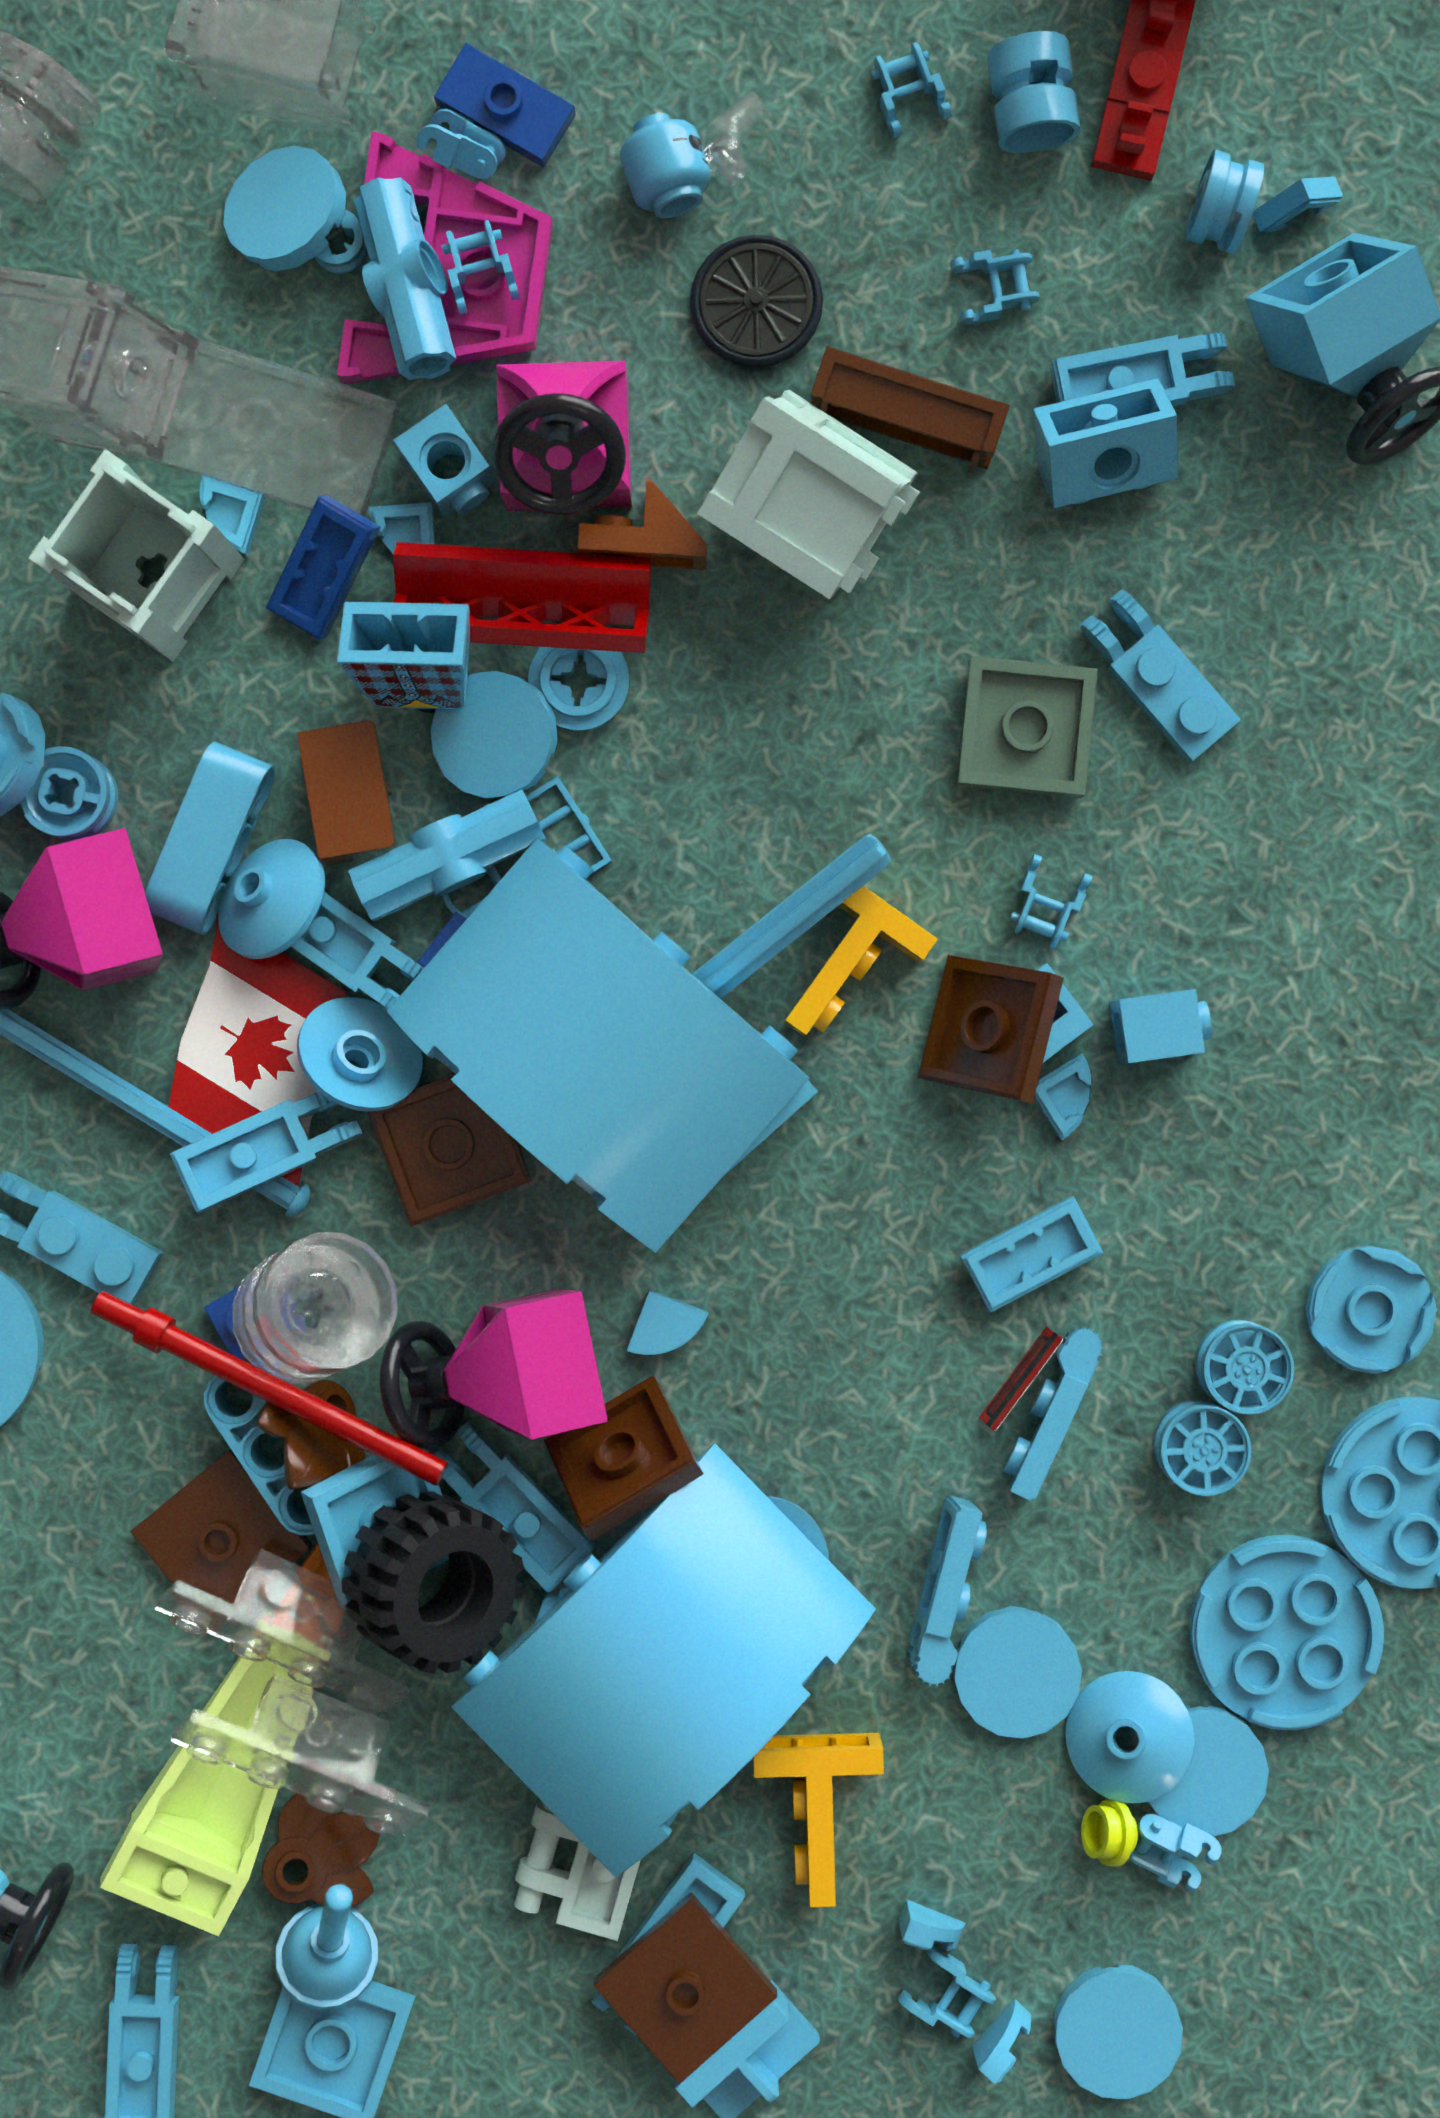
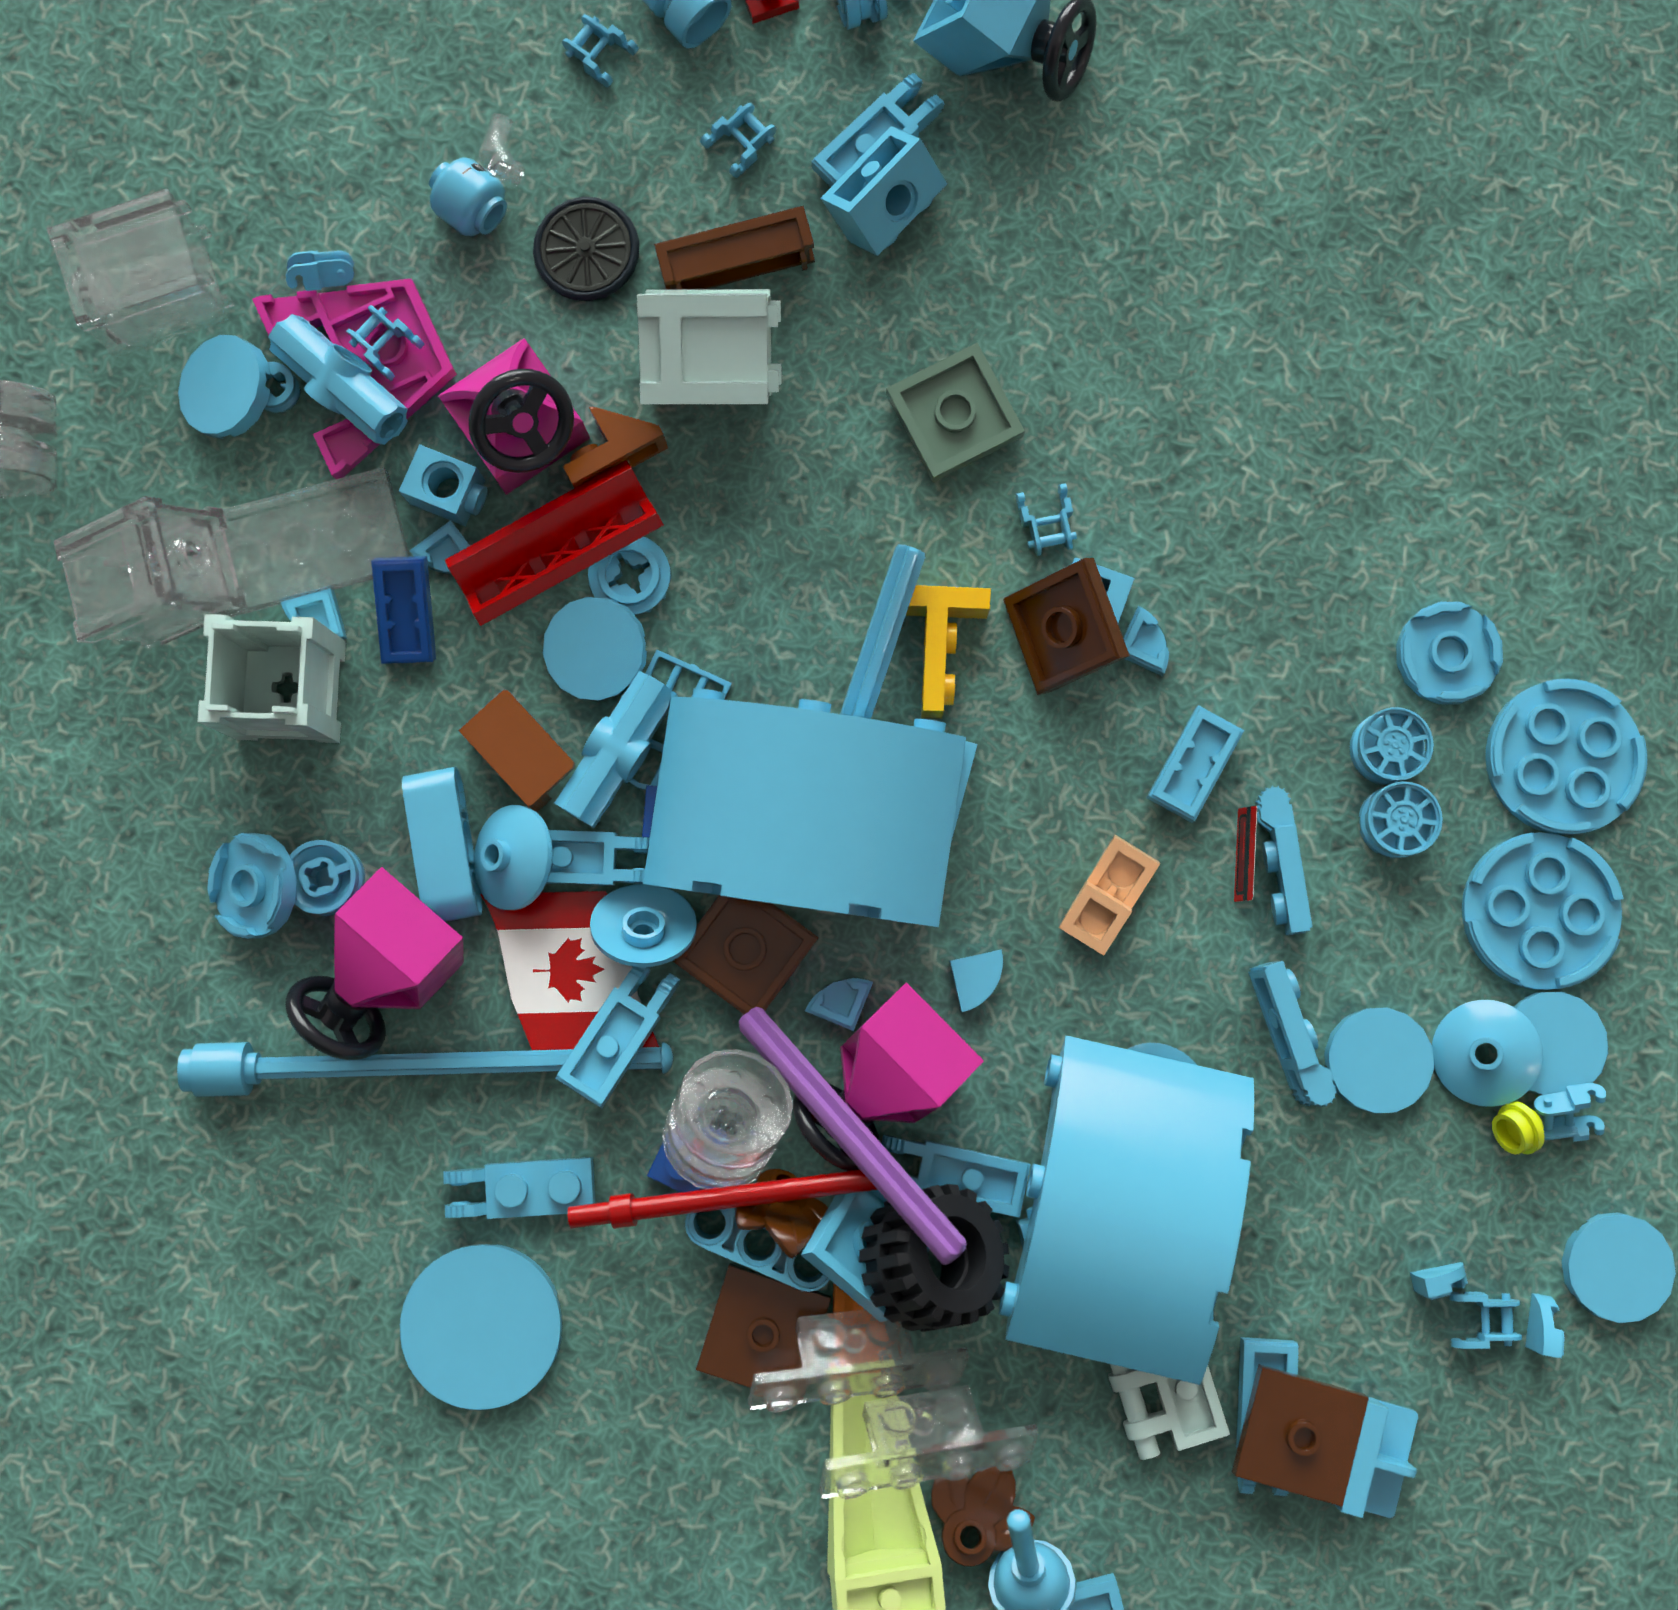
camera: 35 degrees left, 5 degrees down
(407, 653) = (502, 625): medium azure torso -> none
(427, 1409) = (853, 1136): none -> medium lavender axle
(505, 104) = (332, 226): blue plate -> none
(512, 1260) = (841, 1002): none -> medium azure tile
(625, 1462) = (1011, 1087): reddish brown plate -> none
(818, 1759) = (1299, 1240): yellow bracket -> none
(855, 1329) = (1109, 895): none -> light nougat slope
(1160, 1026) = (1178, 553): medium azure brick -> none
(1162, 680) = (1024, 324): medium azure hinge -> none

